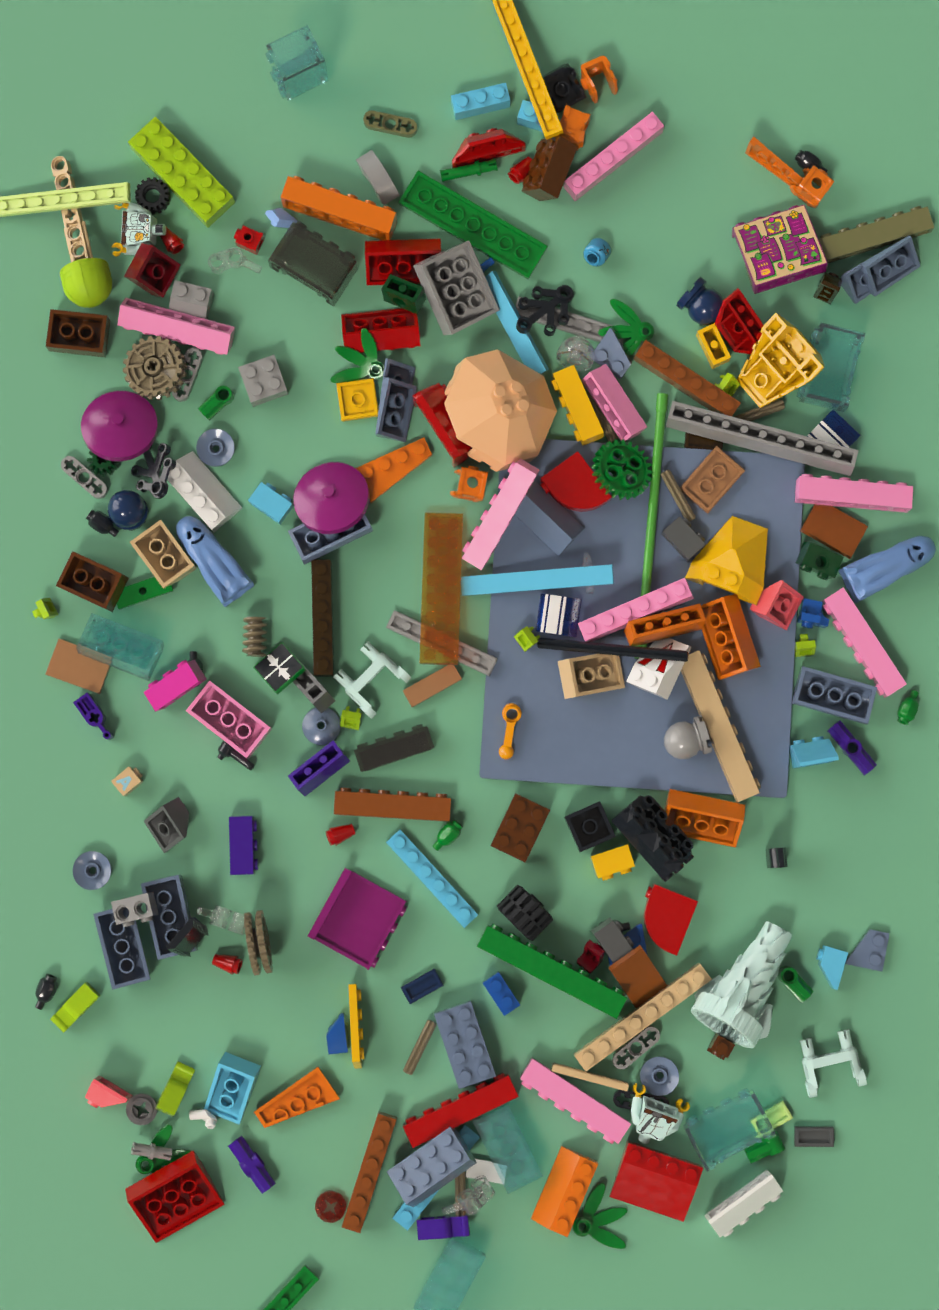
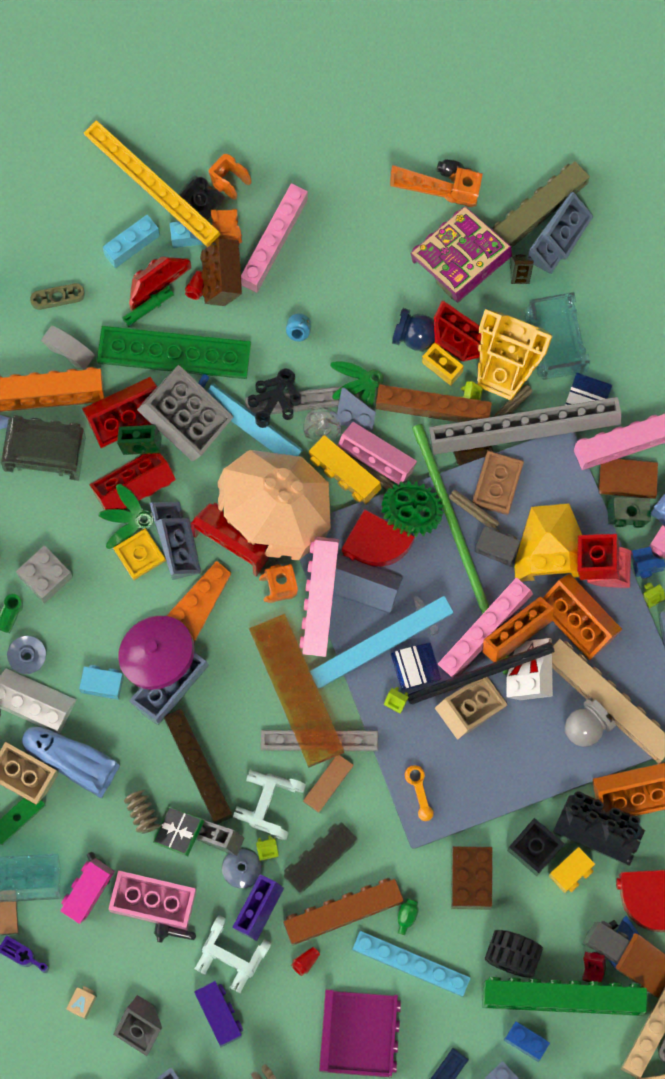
camera: 25 degrees left, 10 degrees down
(283, 817) = (244, 969): none -> light aqua connector
(768, 592) = (598, 556): none -> red brick

